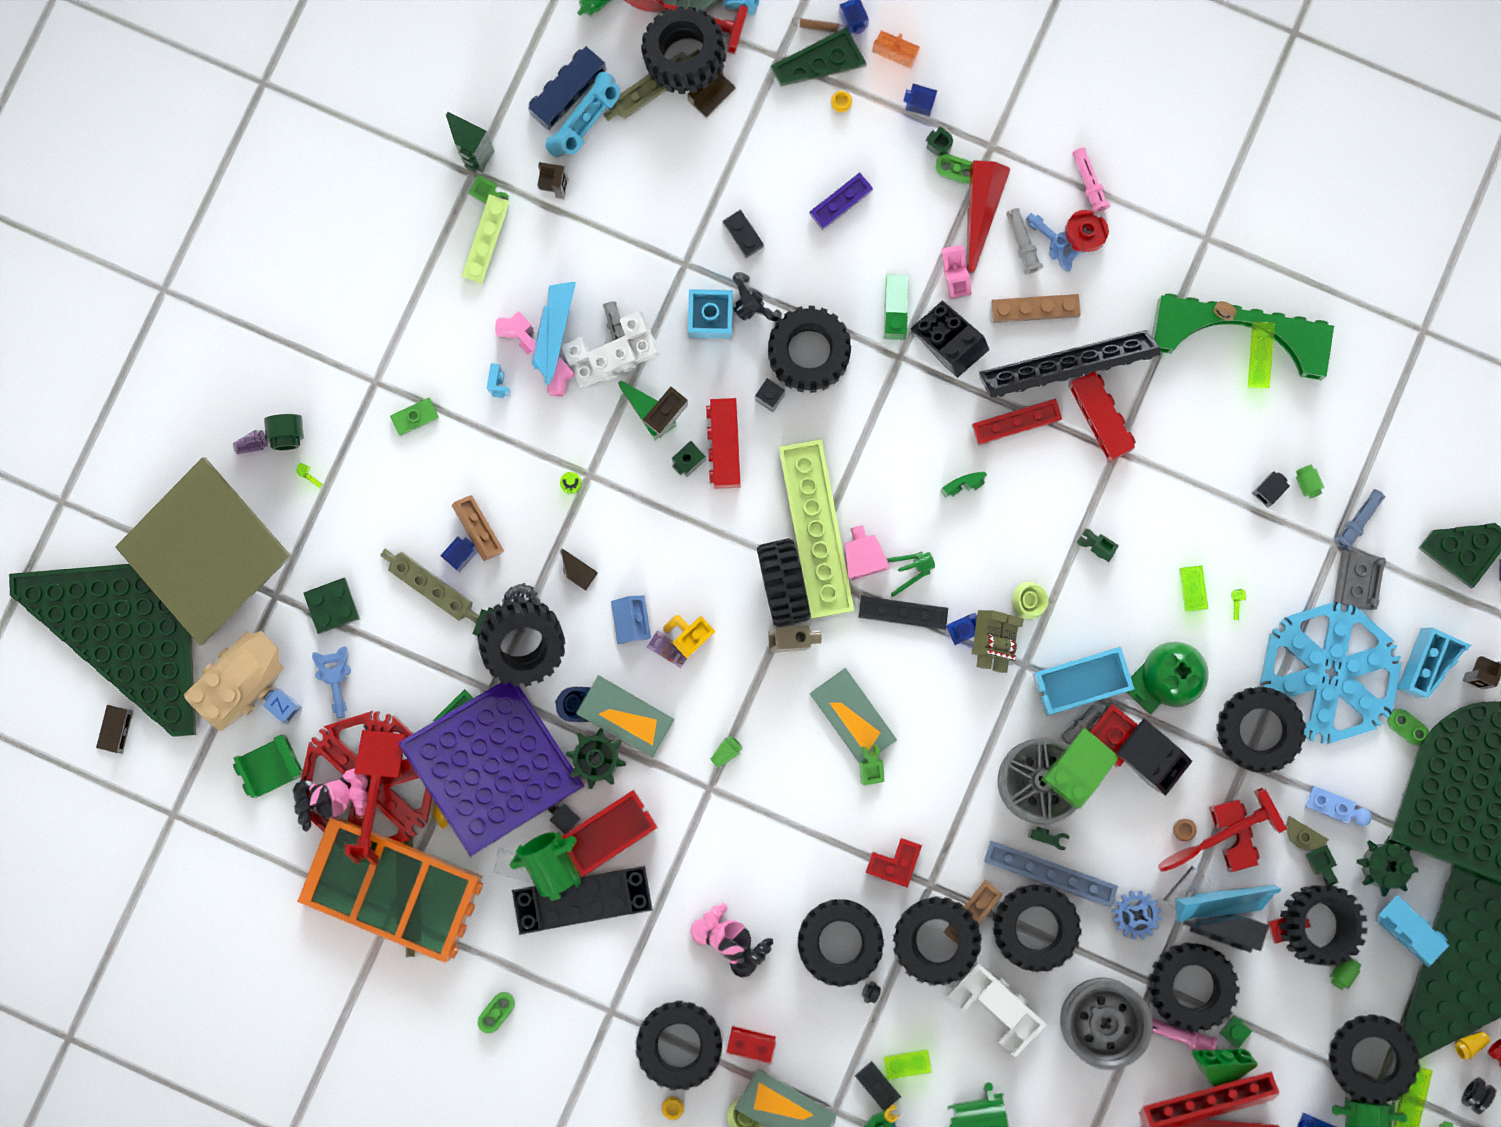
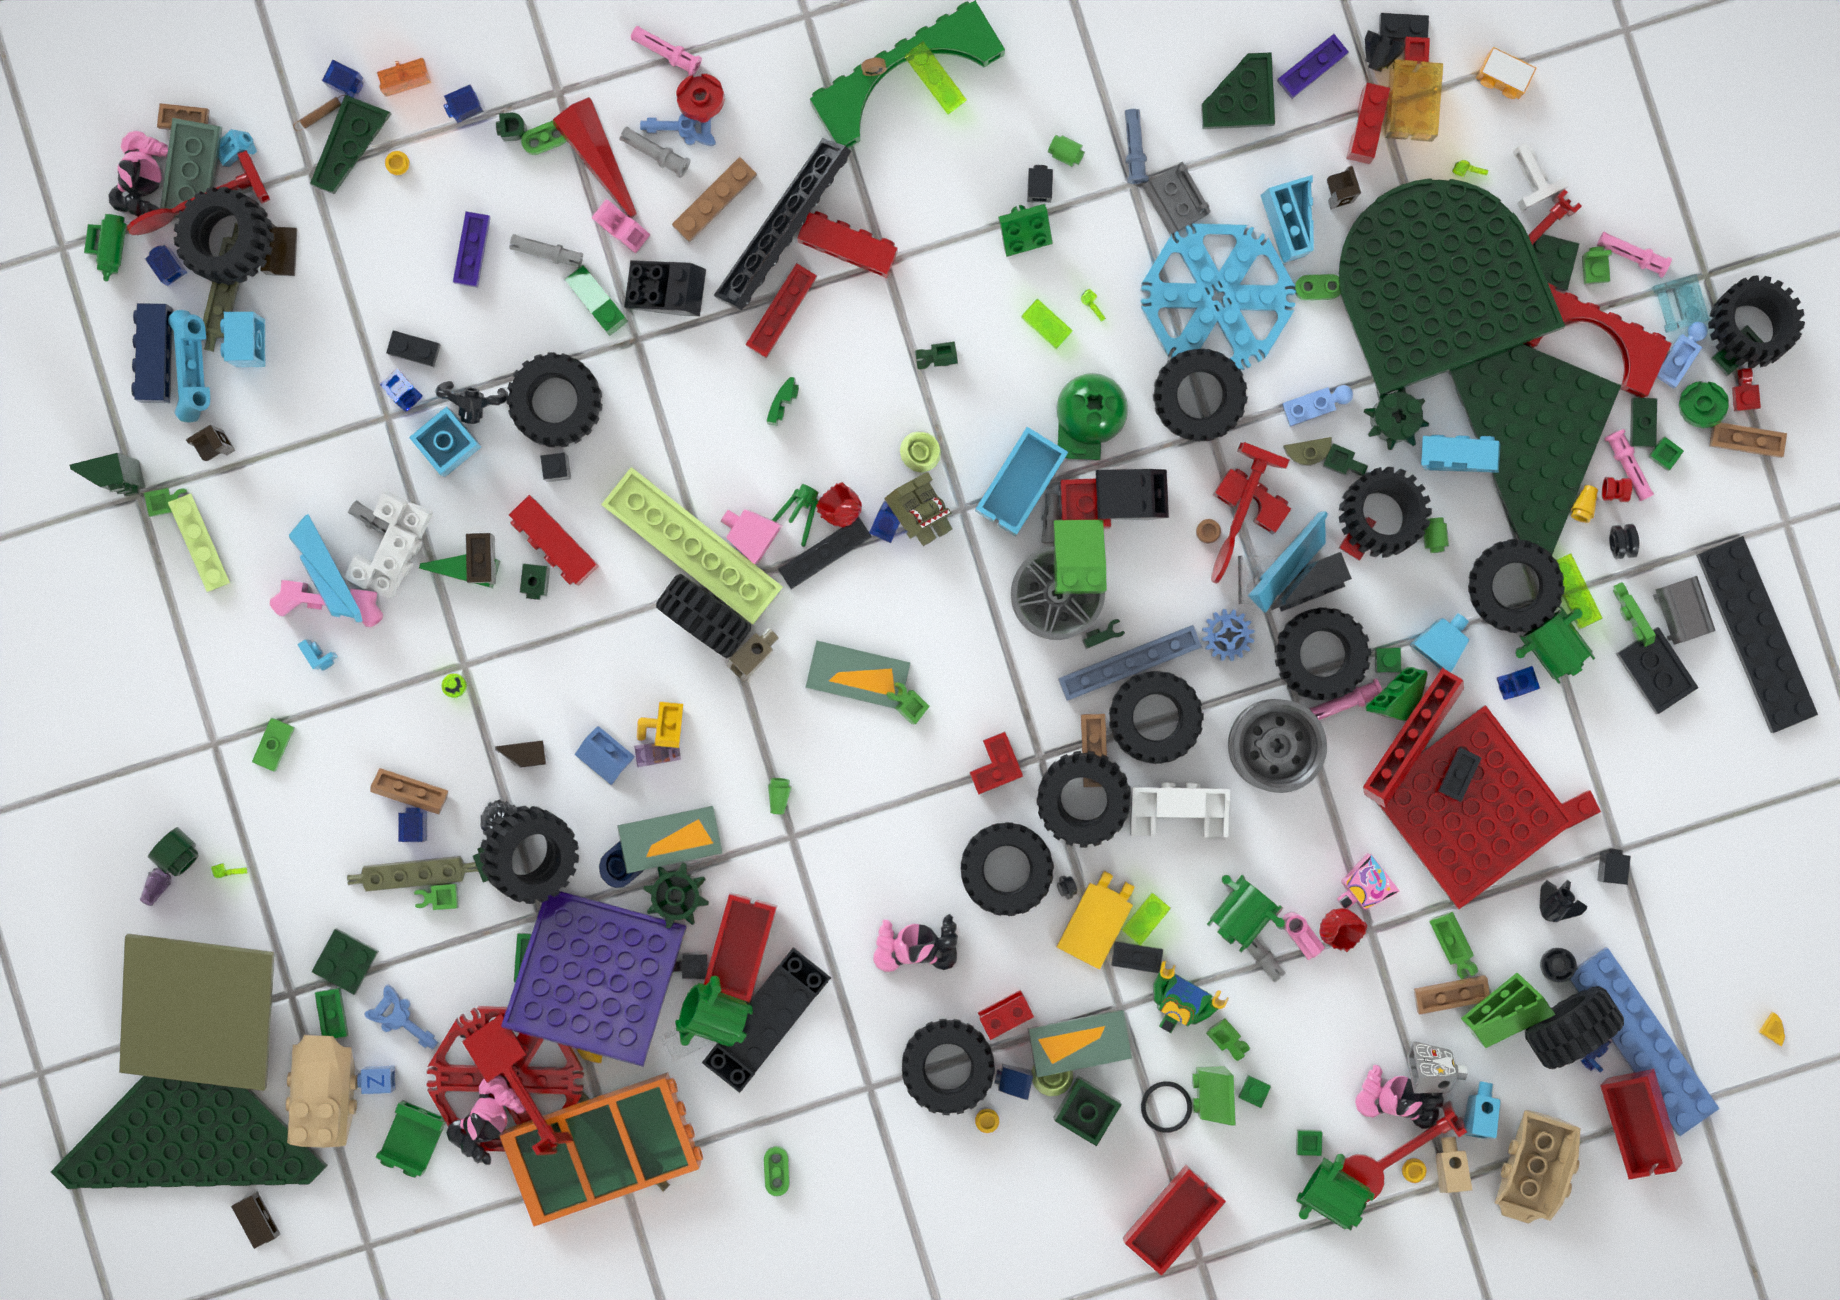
camera: 45 degrees left, 5 degrees up
(291, 632) = (331, 1013): none -> green plate
(434, 619) = (441, 897): none -> bright green plate
(627, 37) = (165, 264): none -> clear blue brick
(635, 129) = (243, 339): none -> medium azure brick
(711, 254) = (401, 390): none -> clear blue bracket
(716, 1097) = (1014, 1081): none -> dark blue slope
(870, 1035) = (1096, 921): none -> yellow tile
(890, 244) = (555, 253): none -> light grey pin
(942, 589) = (839, 505): none -> red hair
(1235, 510) = (1025, 229): none -> green plate
(1286, 1053) = (1443, 642): none -> medium azure torso

